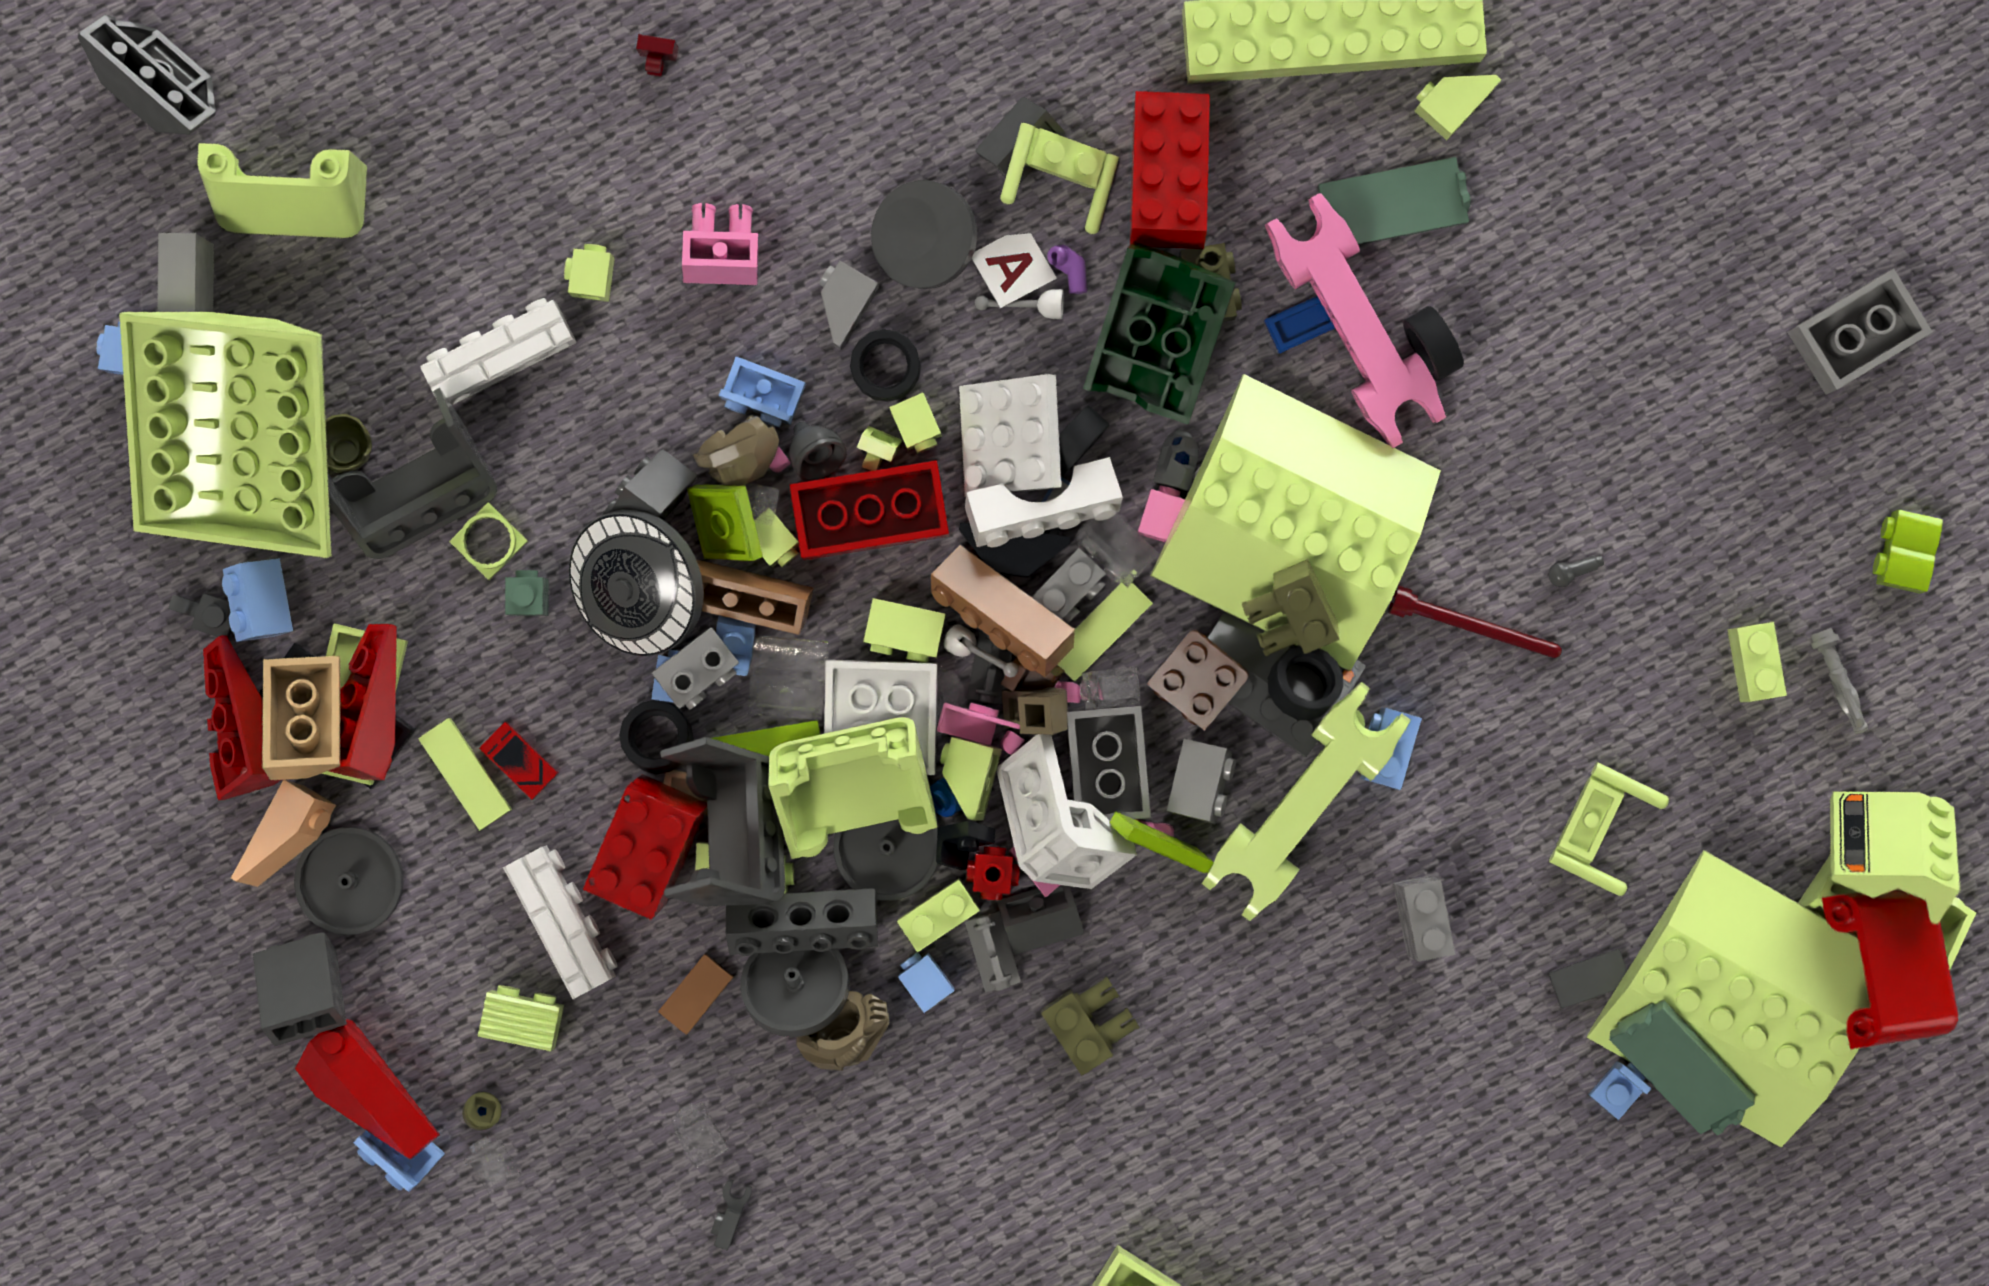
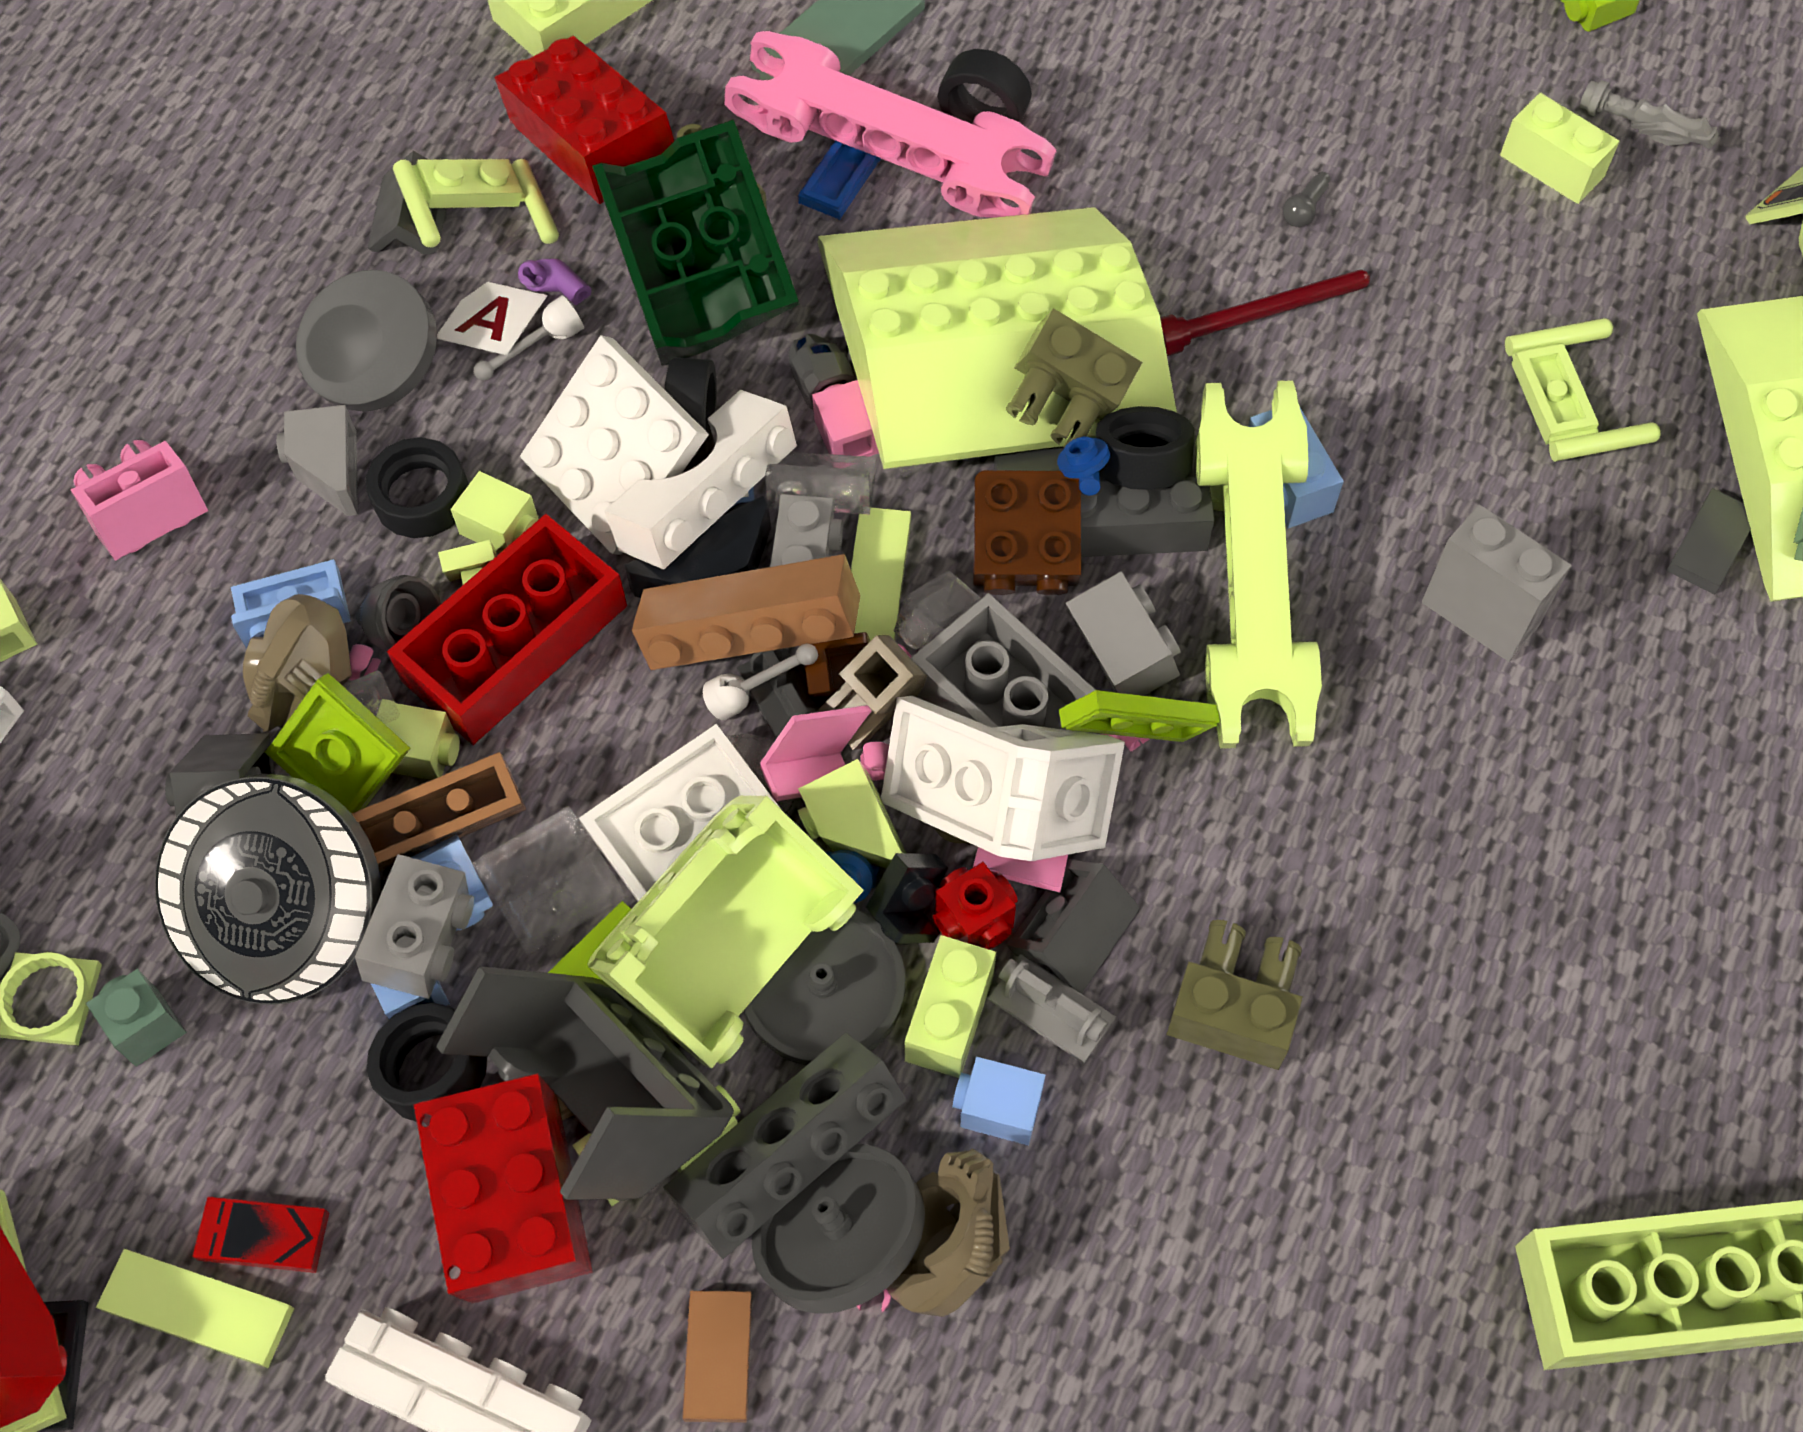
camera: 45 degrees left, 25 degrees down
(904, 629) = (647, 723): yellowish green brick -> none
(1257, 671) = (1083, 460): none -> blue plate

